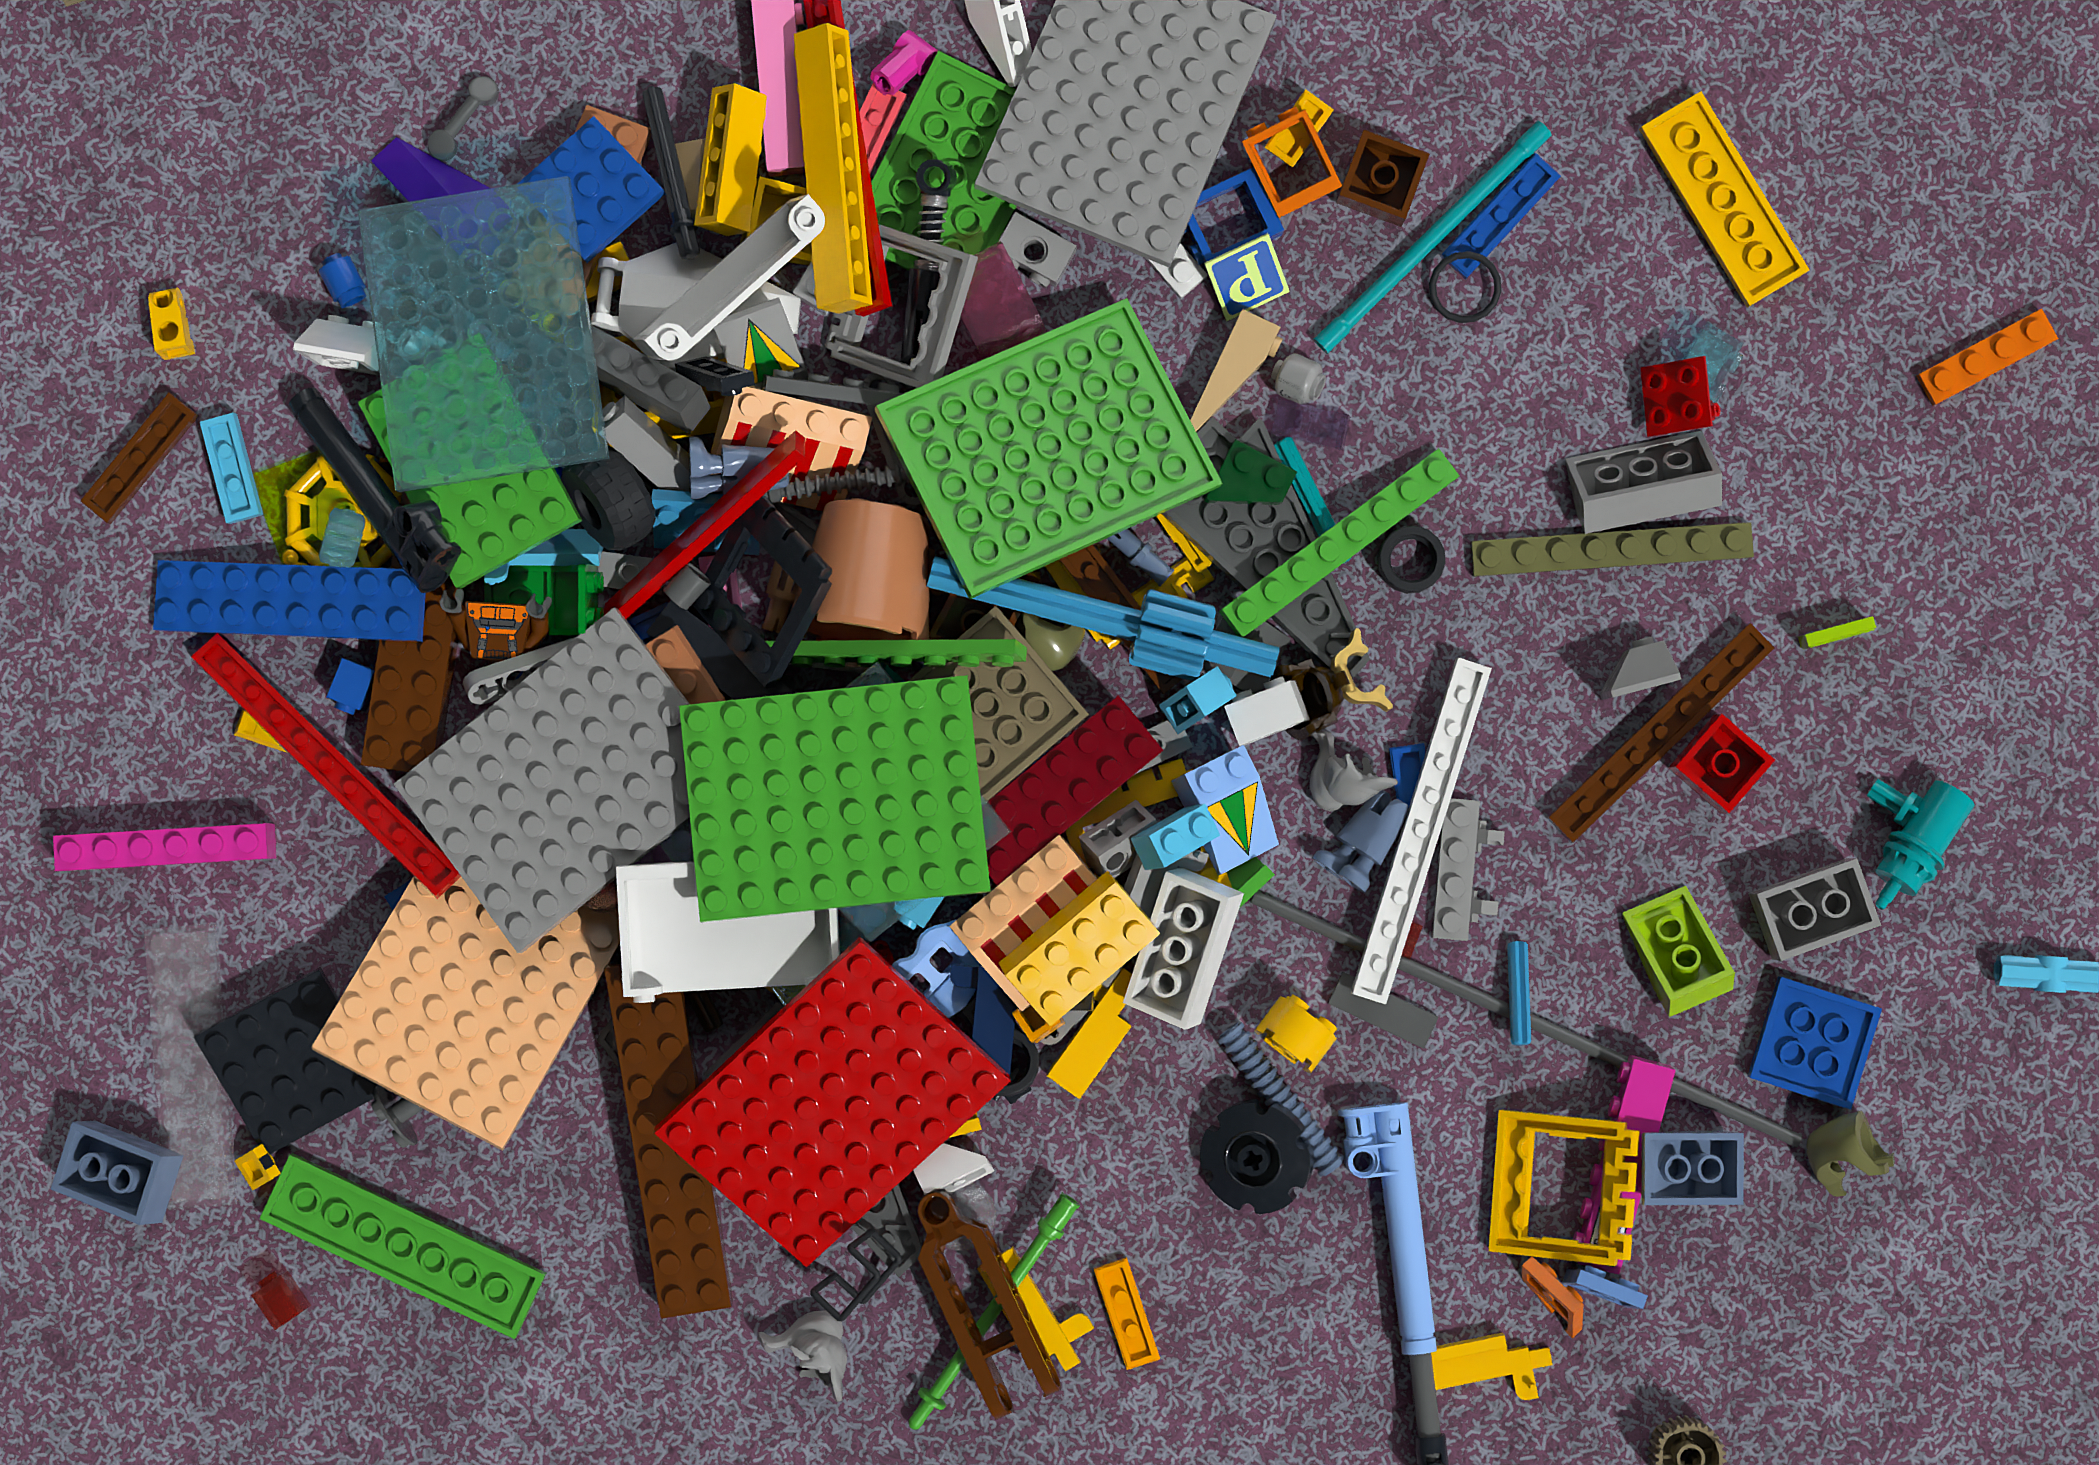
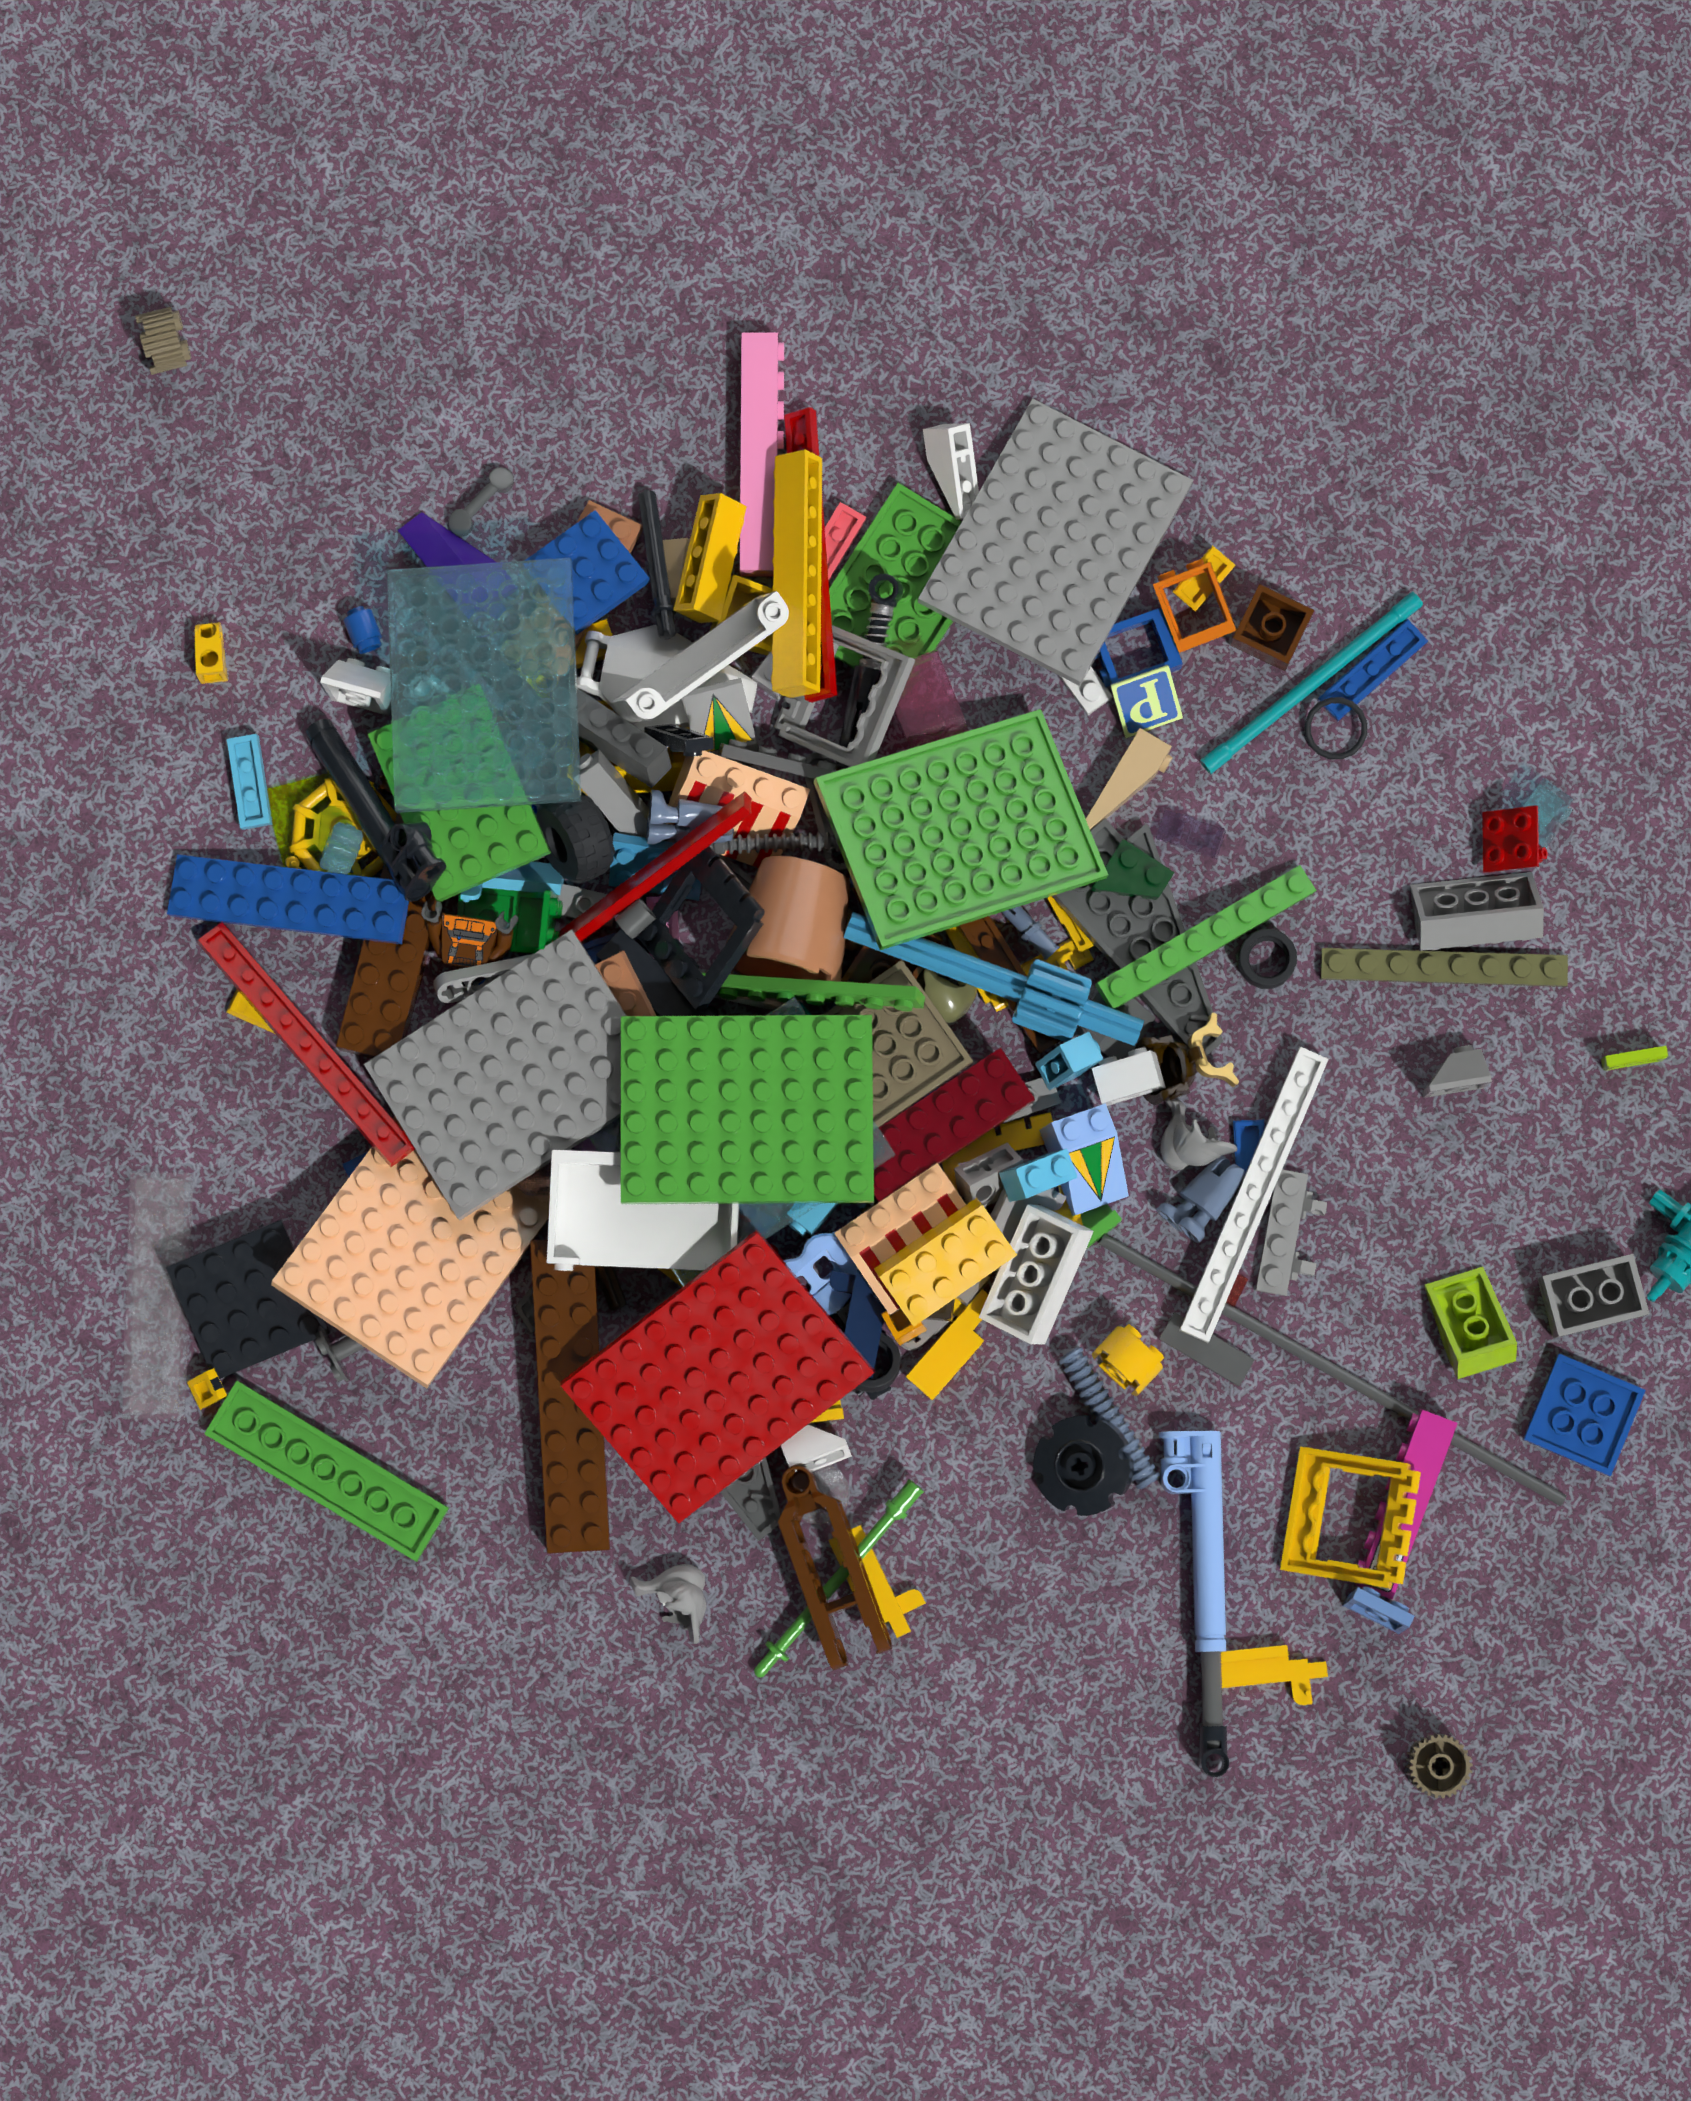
camera: 10 degrees right, 5 degrees down
(117, 1172) = (86, 1379): sand blue brick -> none
(139, 458) = (171, 765): reddish brown plate -> none
(164, 847) = (157, 1102): dark pink brick -> none
(280, 1299) = (214, 1506): clear red brick -> none
(351, 686) = (334, 979): blue brick -> none
(780, 597) = (714, 938): medium nougat arm -> none
(871, 1286) = (718, 1553): black piece -> none
(909, 57) = (871, 486): dark pink piece -> none
(1057, 251) = (983, 667): light grey brick -> none
(1126, 1313) = (955, 1594): light orange tile -> none
(1298, 378) = (1183, 793): light grey head -> none
(1305, 487) = (1181, 887): teal axle -> none
(1519, 993) = (1327, 1345): dark azure axle -> none
(1553, 1294) = (1334, 1613): orange wing -> none
(1660, 732) = (1472, 1130): reddish brown plate -> none
(1692, 1168) = (1464, 1511): sand blue slope -> none
(1721, 763) = (1522, 1161): red brick -> none
(1724, 199) = (1568, 674): yellow plate -> none
(1846, 1140) = (1603, 1499): olive piece -> none

